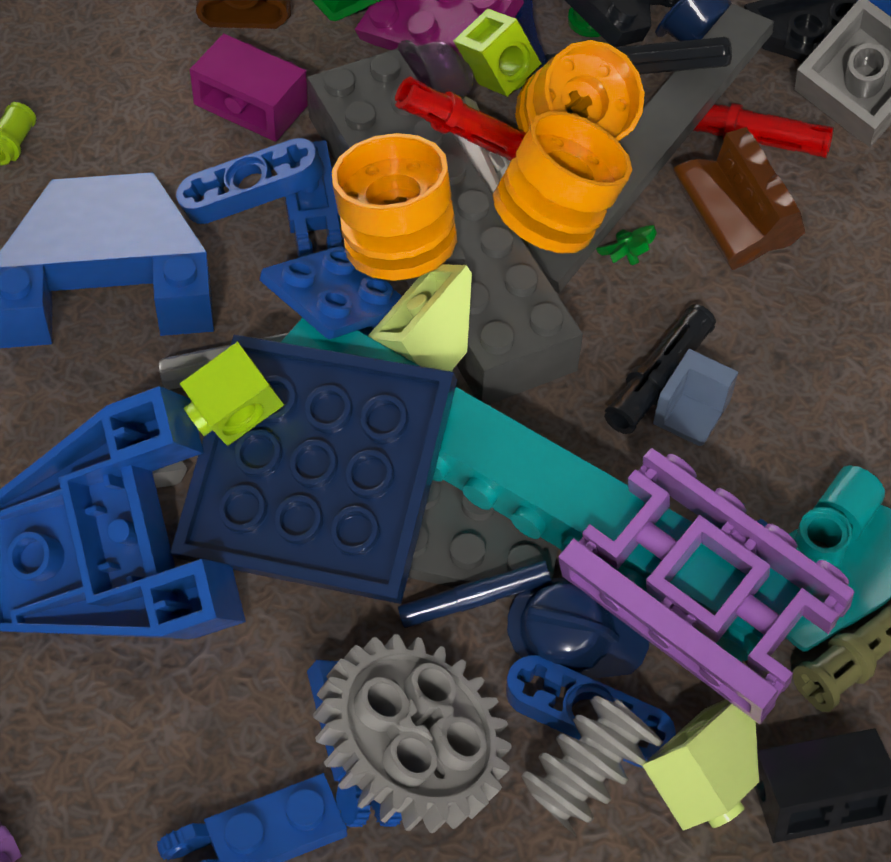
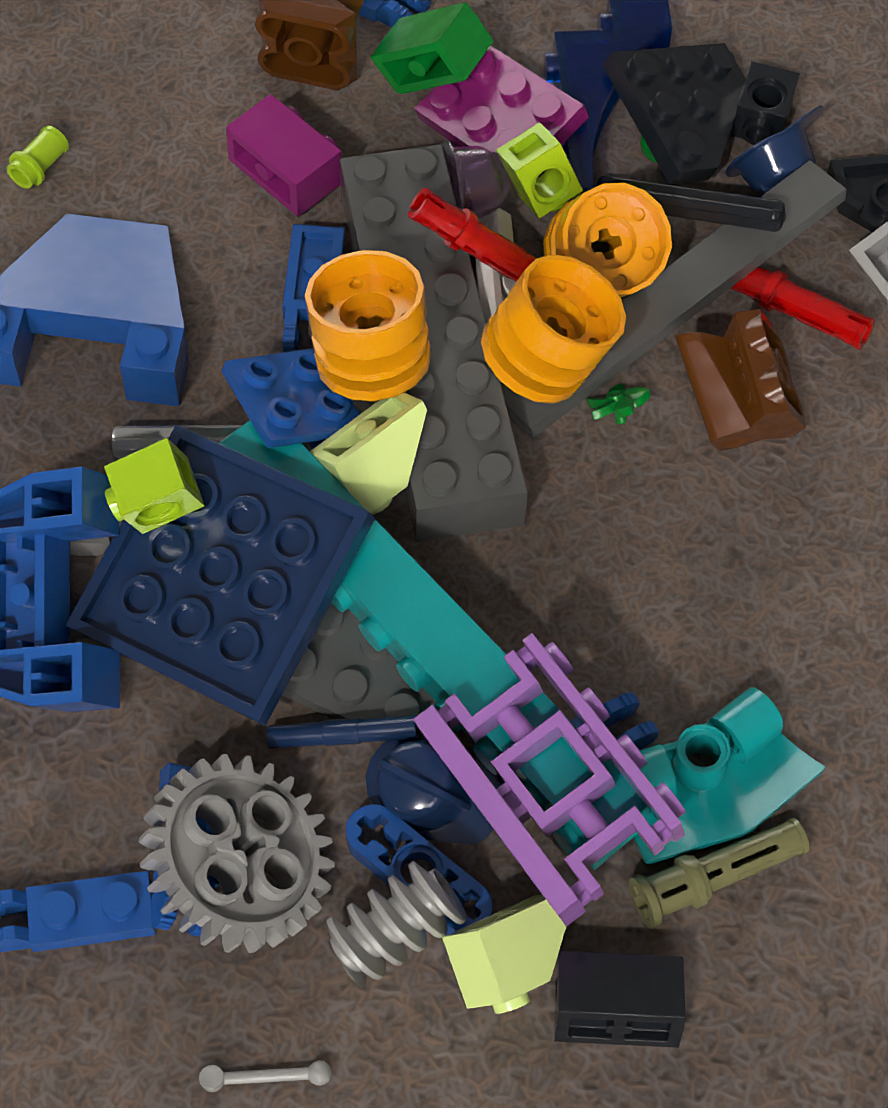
camera: 15 degrees right, 5 degrees up
(278, 157) = (208, 258): blue beam -> none
(648, 380) = (589, 553): black pin -> none
(695, 397) = (627, 580): sand blue panel -> none

